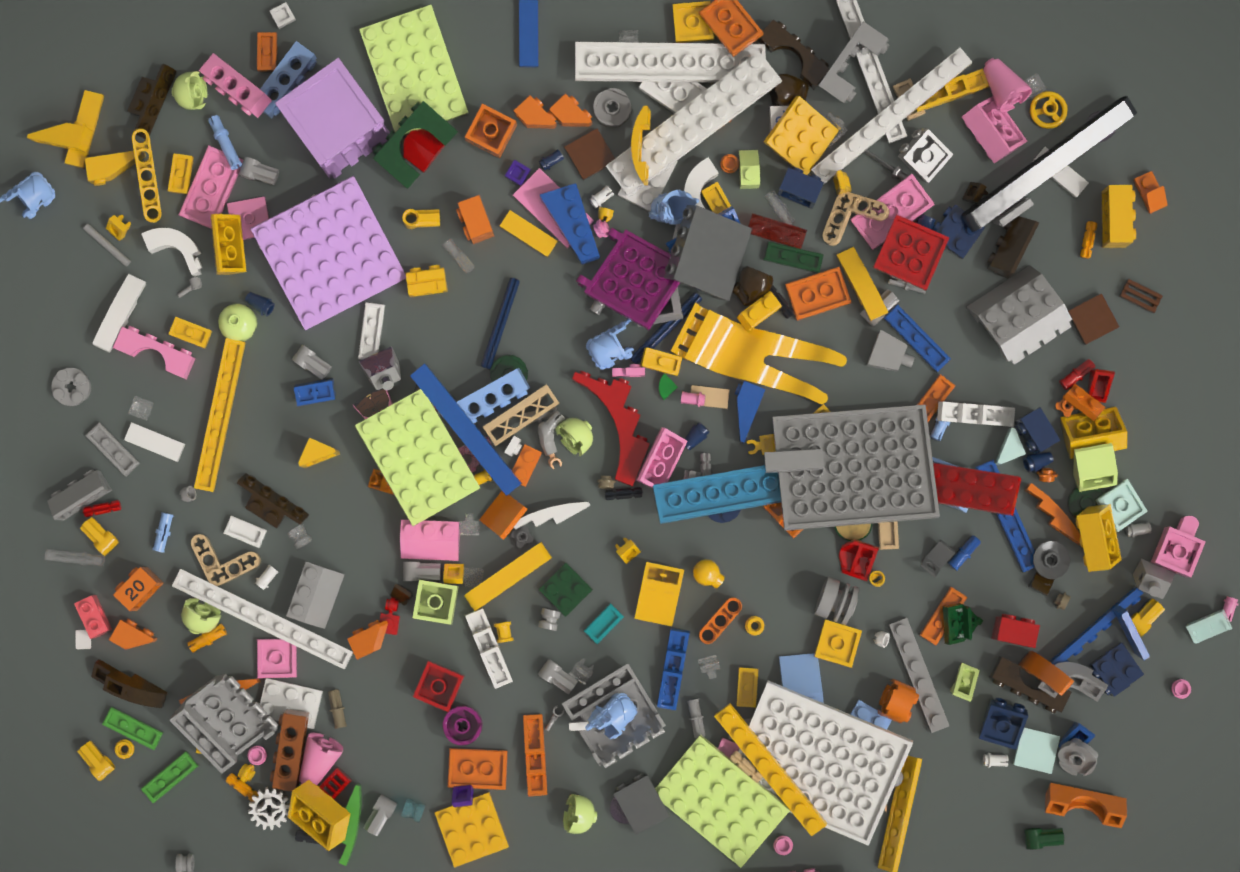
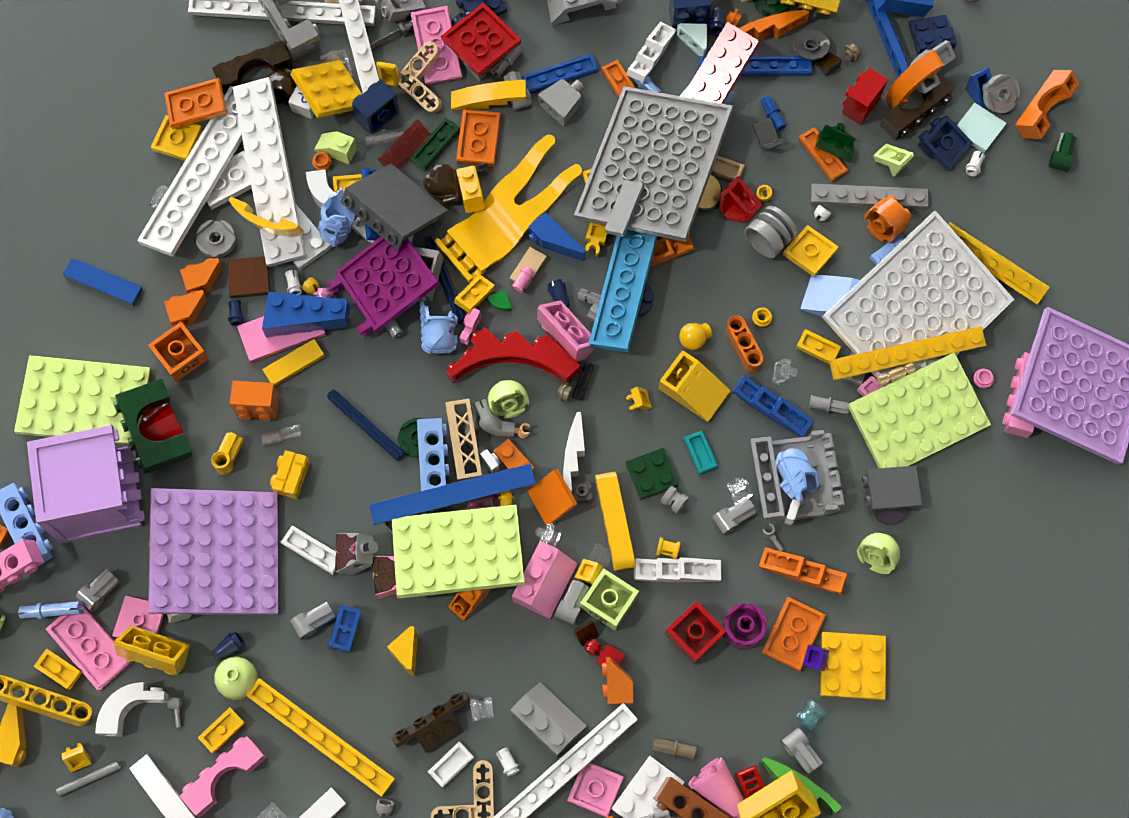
camera: 65 degrees left, 15 degrees down
(517, 173) = (231, 347): dark purple plate -> none

